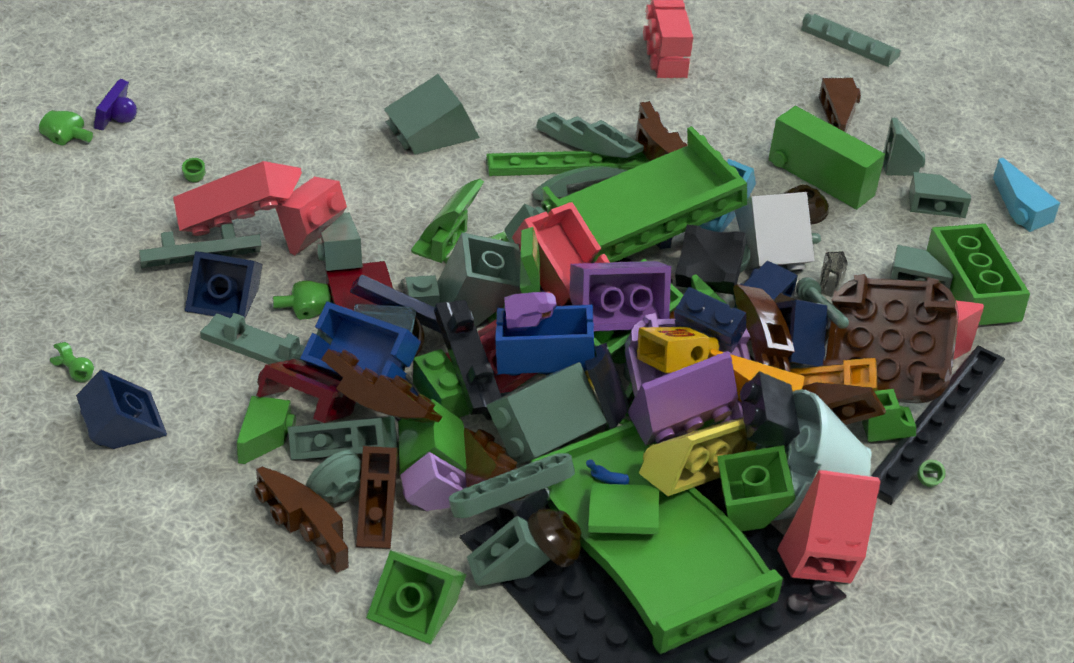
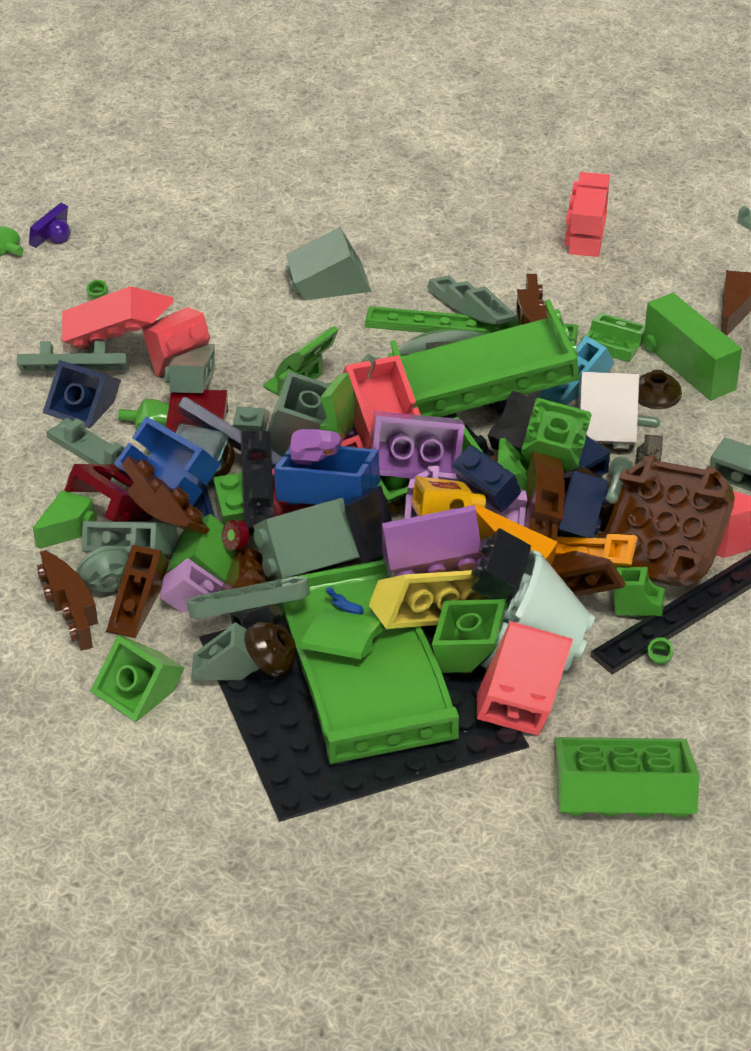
camera: 20 degrees right, 0 degrees up
(465, 418) = (235, 535): none -> dark red tile
(744, 150) = (620, 330): none -> bright green slope
(750, 261) = (557, 432): none -> bright green slope
(959, 611) = (626, 776): none -> bright green slope

